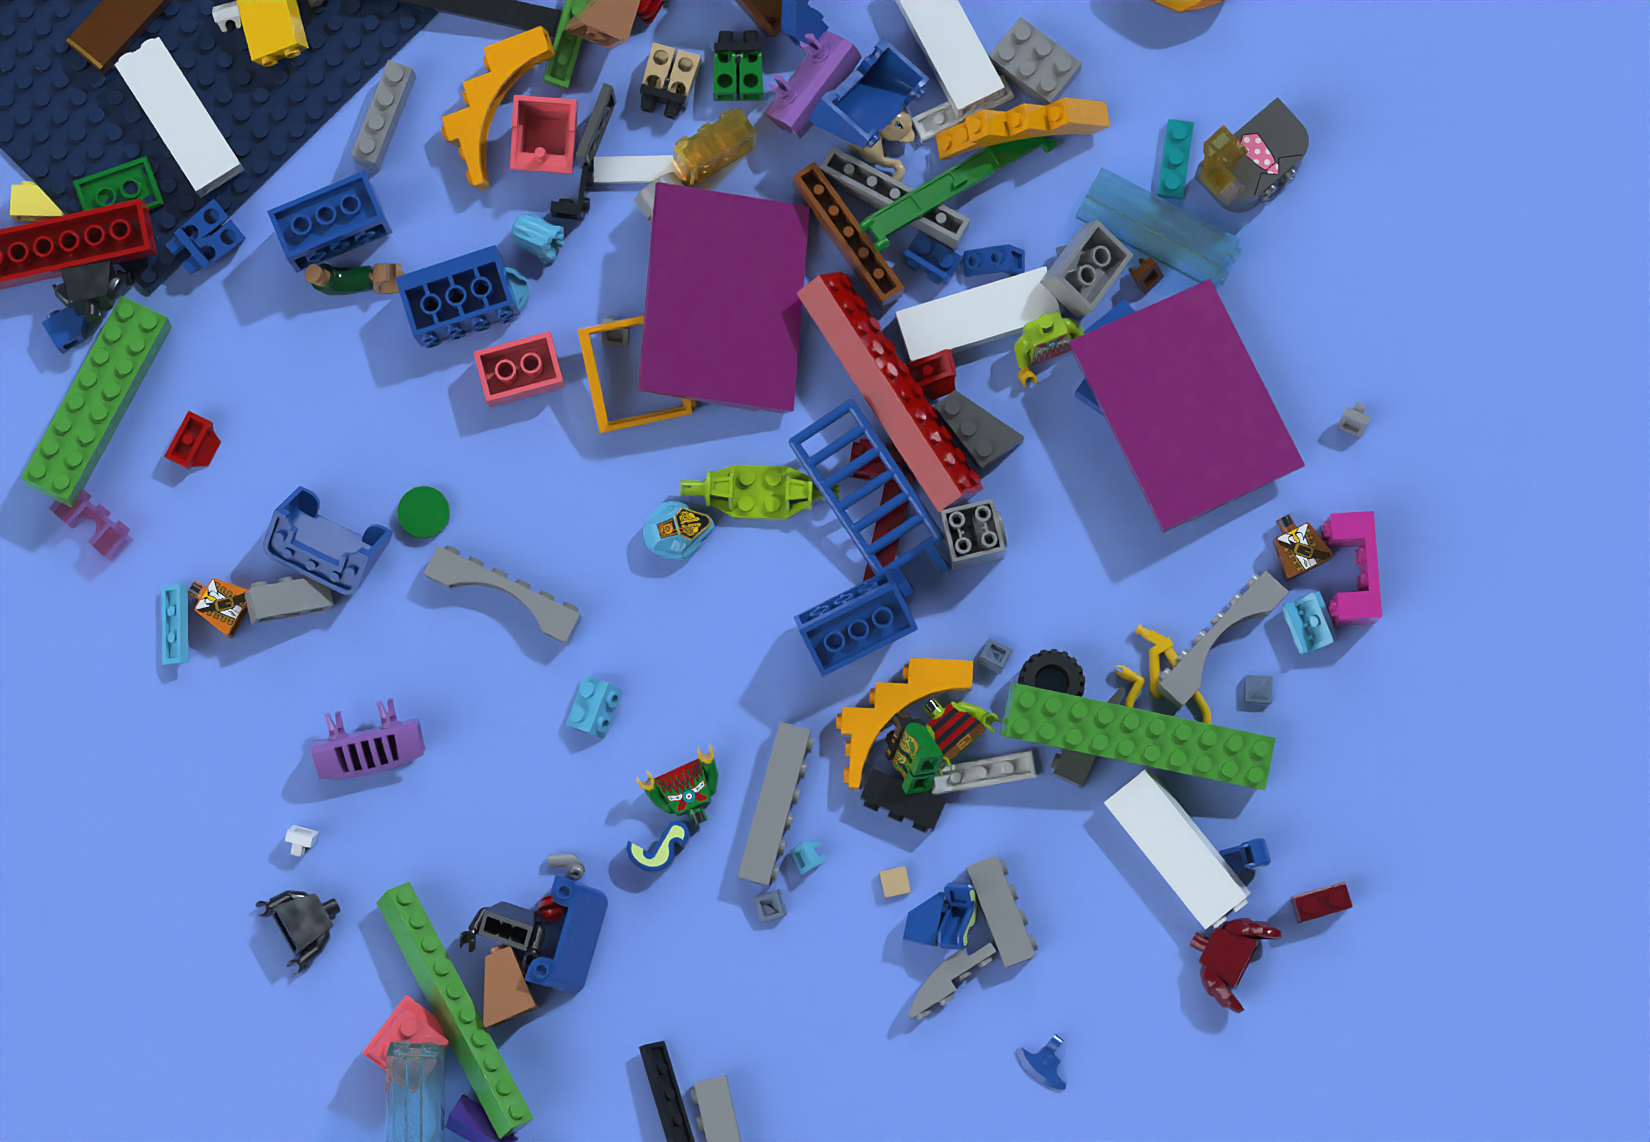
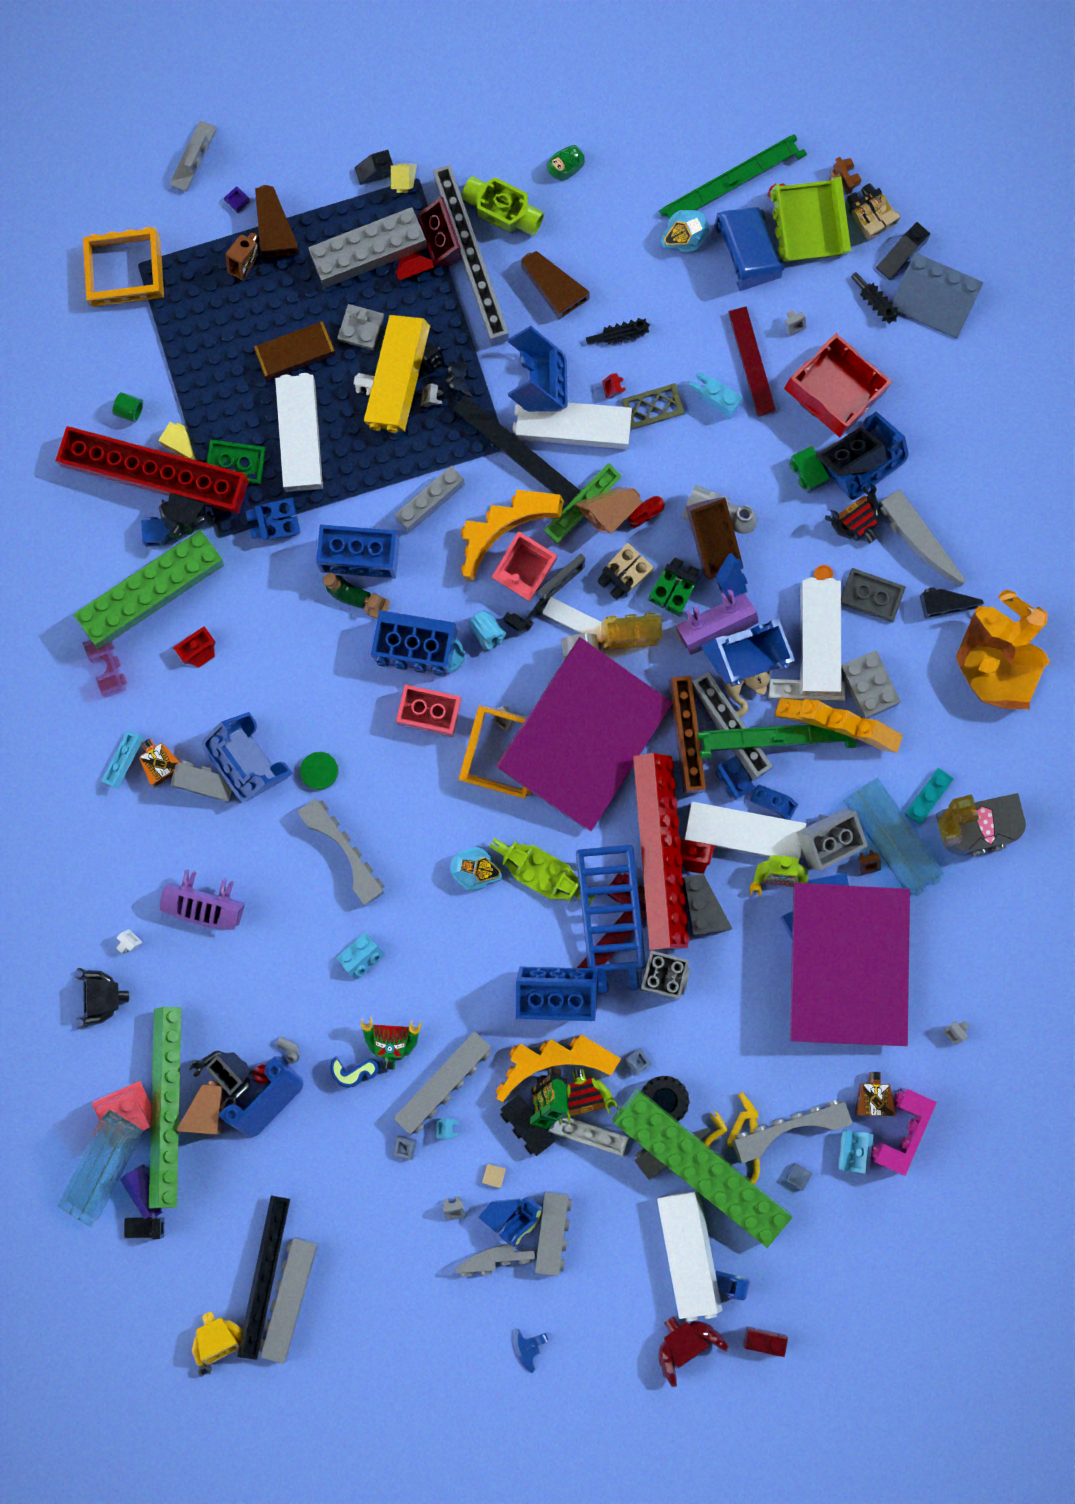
camera: 25 degrees right, 0 degrees up
(869, 947) = (453, 1210): none -> light grey tile

